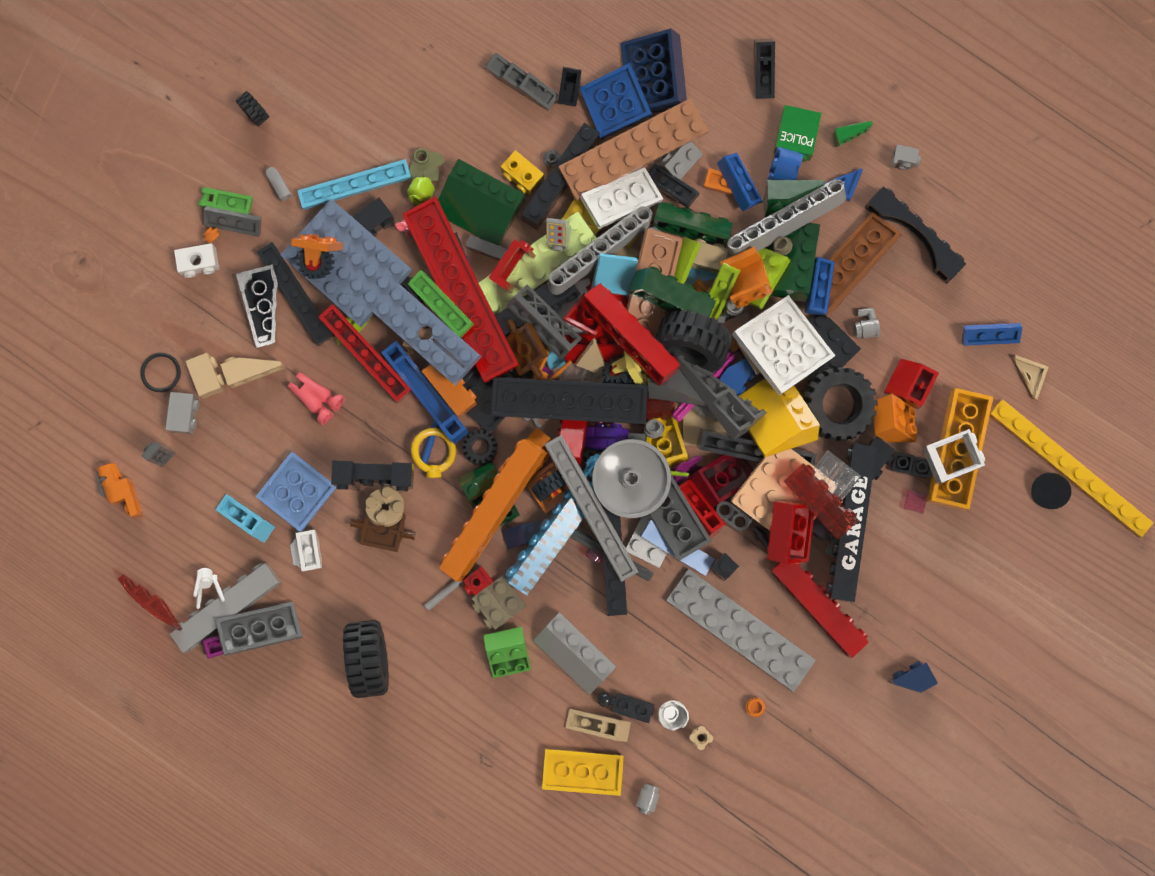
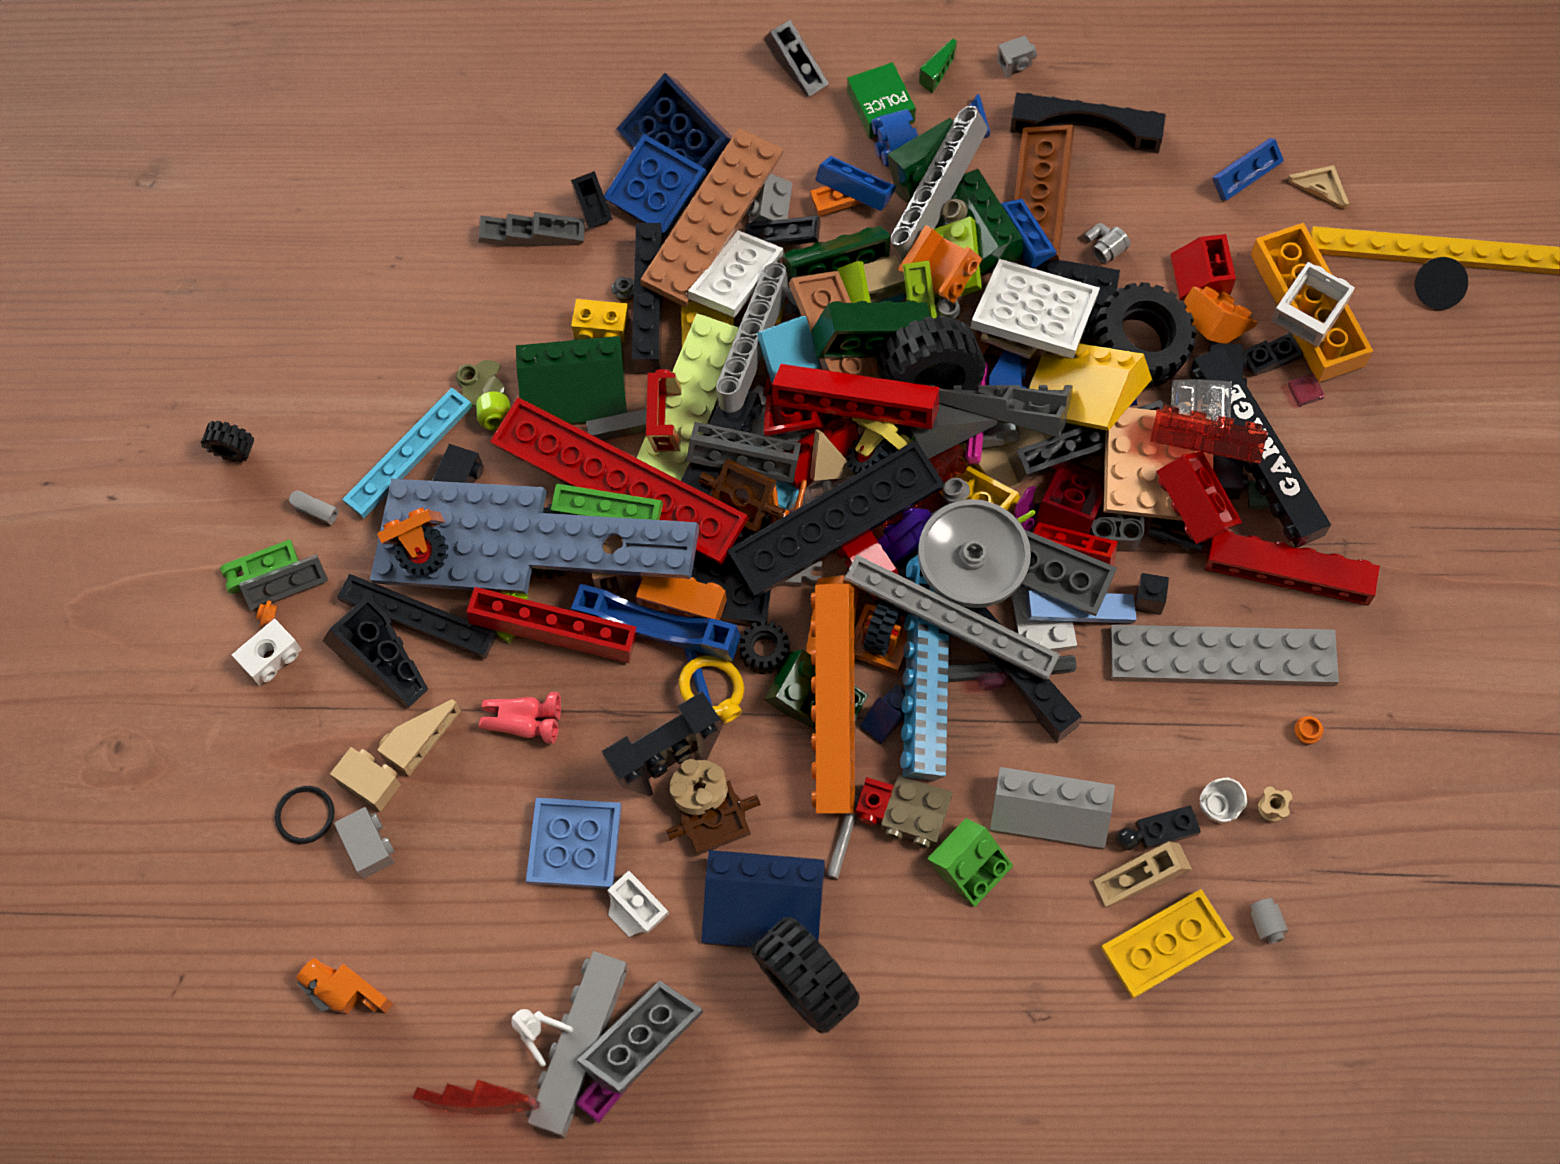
camera: 30 degrees left, 15 degrees down
(157, 453) = (367, 902): dark grey plate -> none
(245, 518) = (531, 916): medium azure slope -> none
(377, 593) = (755, 891): none -> dark blue slope
(402, 226) = (502, 459): coral plant -> none
(557, 234) = (693, 343): light grey slope -> none
(917, 678) = (1462, 576): dark blue slope -> none

